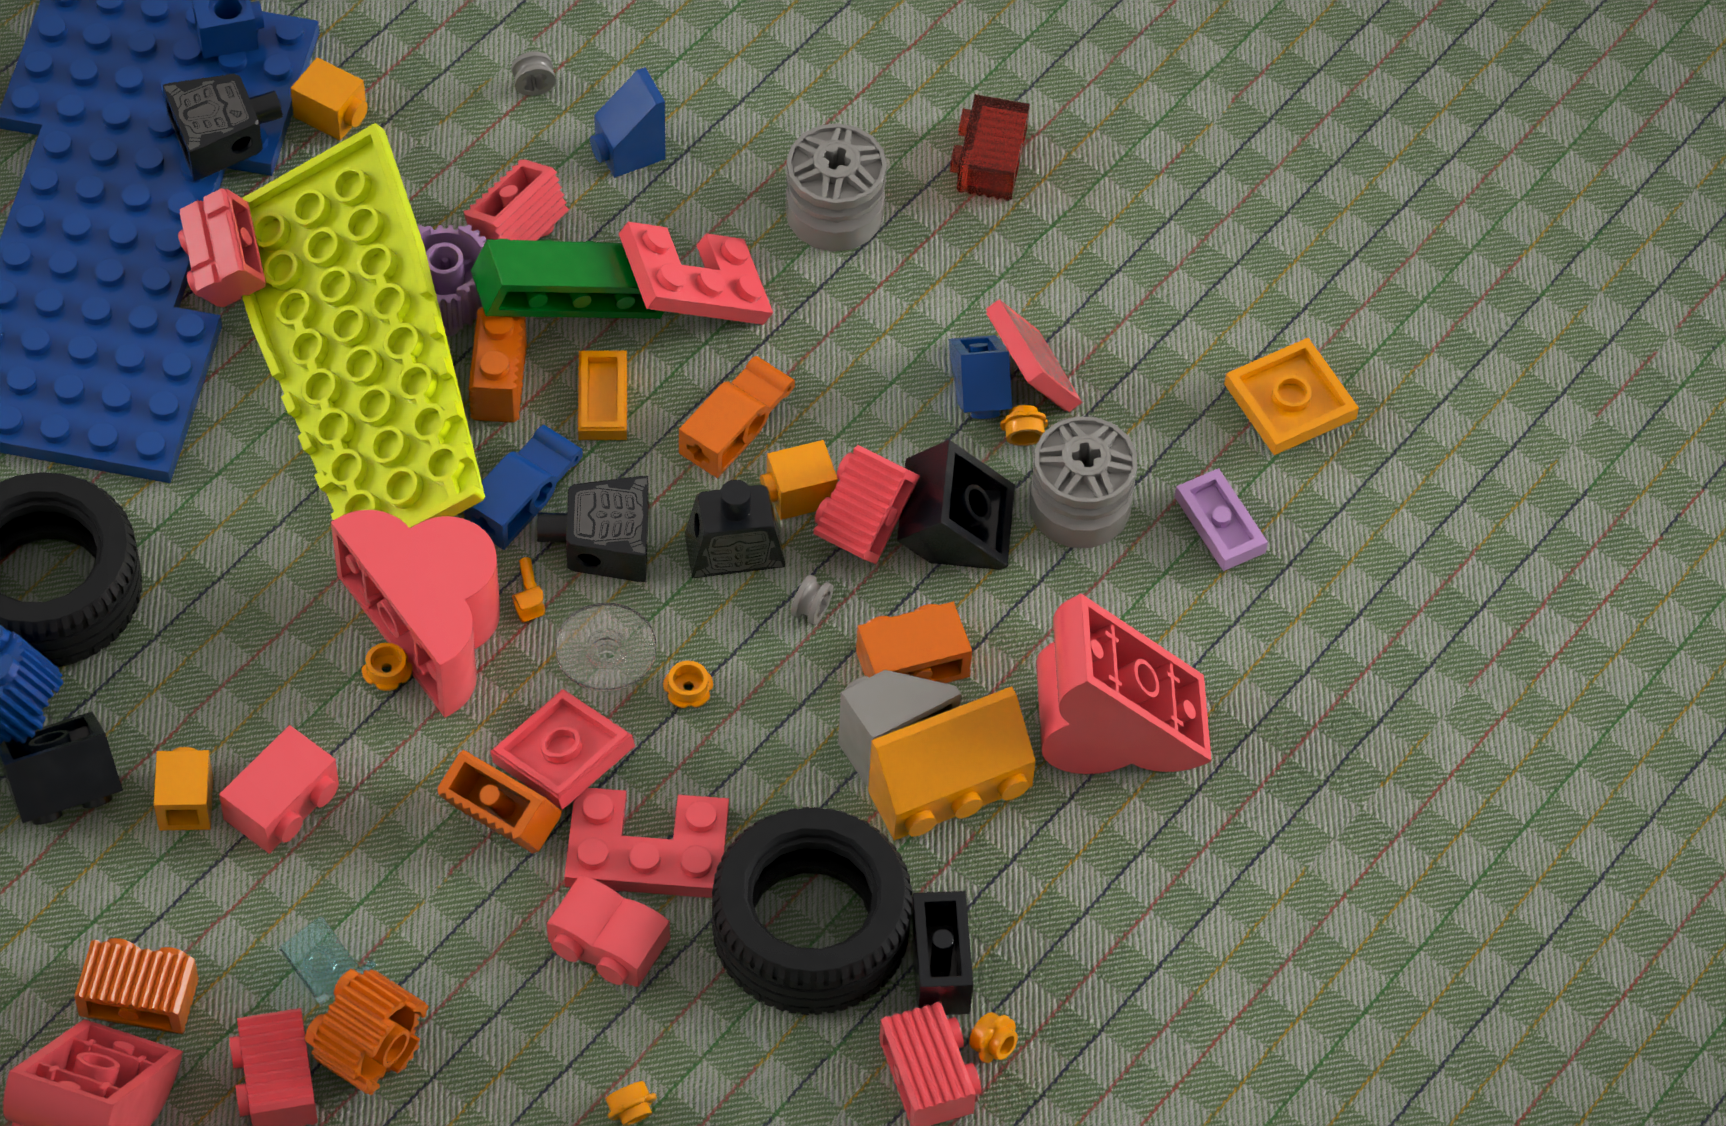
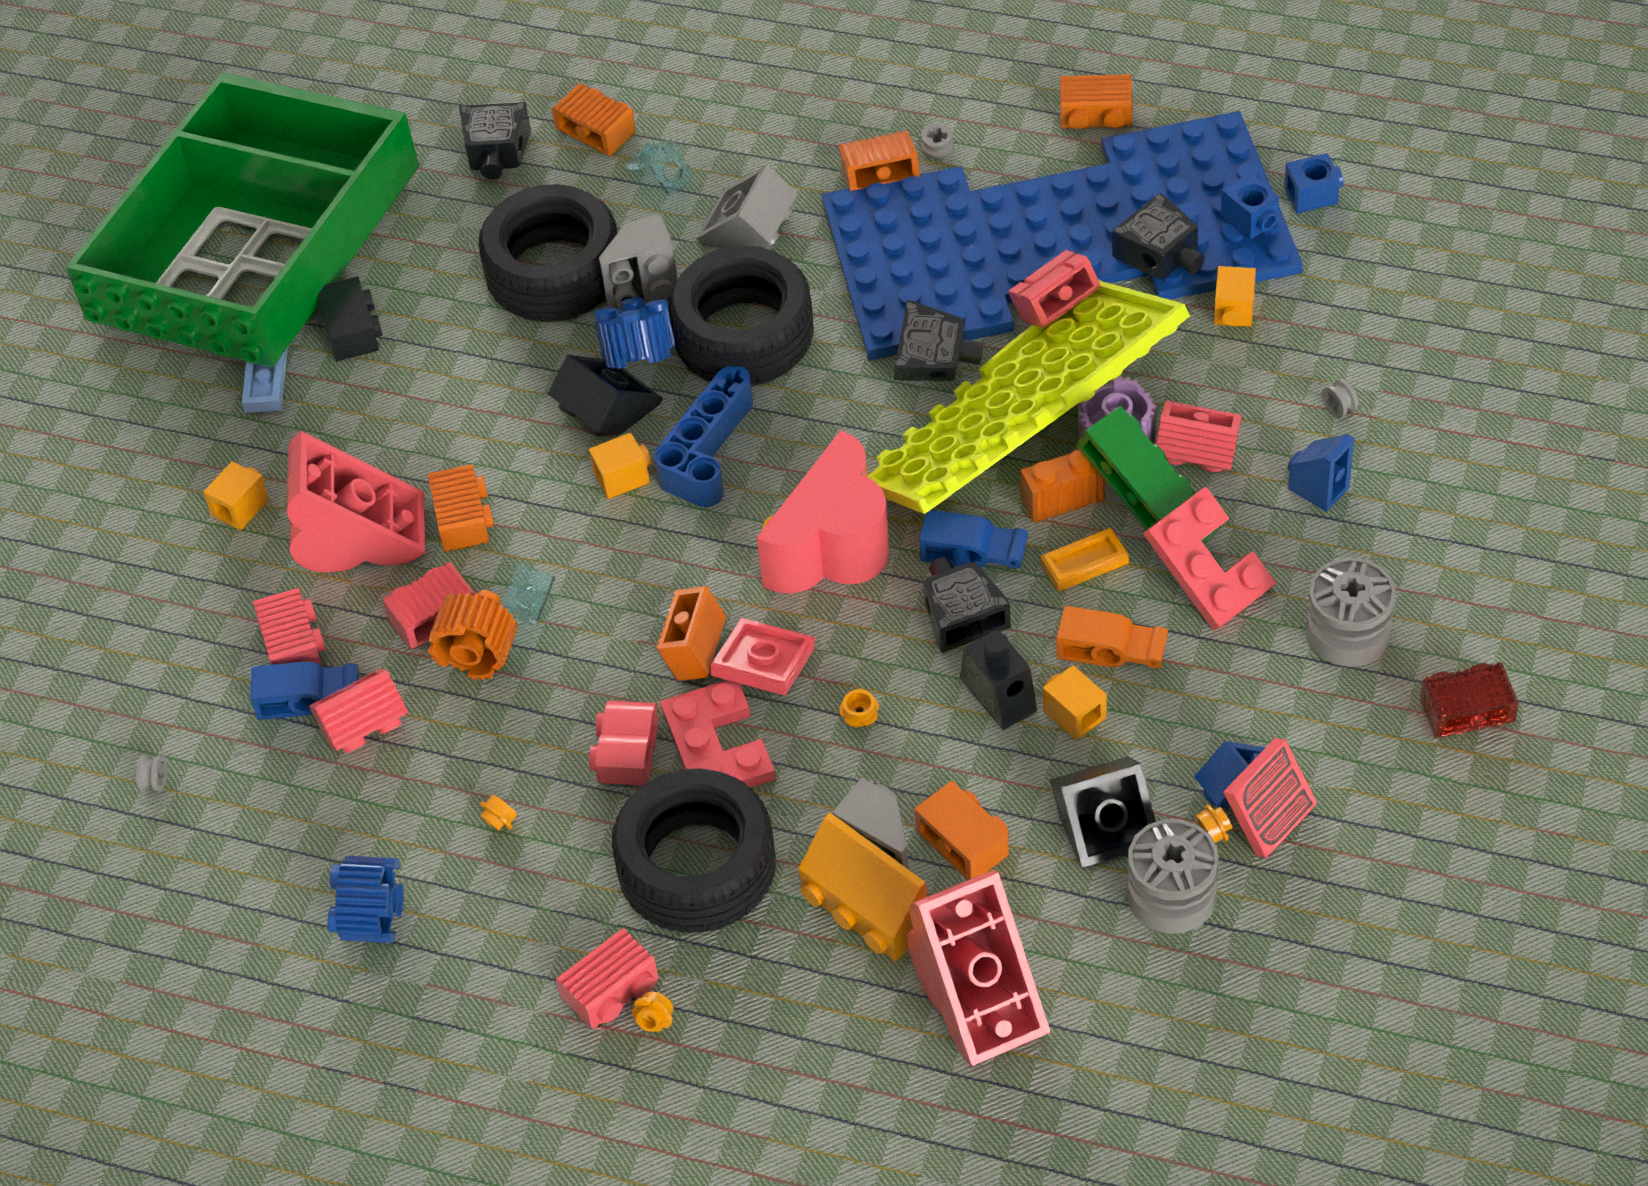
camera: 75 degrees right, 5 degrees down
(191, 677) = (686, 454): none -> blue beam
(215, 401) = (933, 345): none -> torso
(280, 789) = (646, 515): coral brick -> none
(528, 602) = (881, 591): light orange hand -> none
(601, 630) = (858, 633): clear dish -> none
(812, 599) = (972, 752): light grey bush -> none
(864, 503) = (1064, 743): coral brick -> none
(942, 951) = (699, 945): black brick -> none
(1221, 519) = (1205, 990): lavender plate -> none
(1291, 396) = (1358, 995): light orange plate -> none

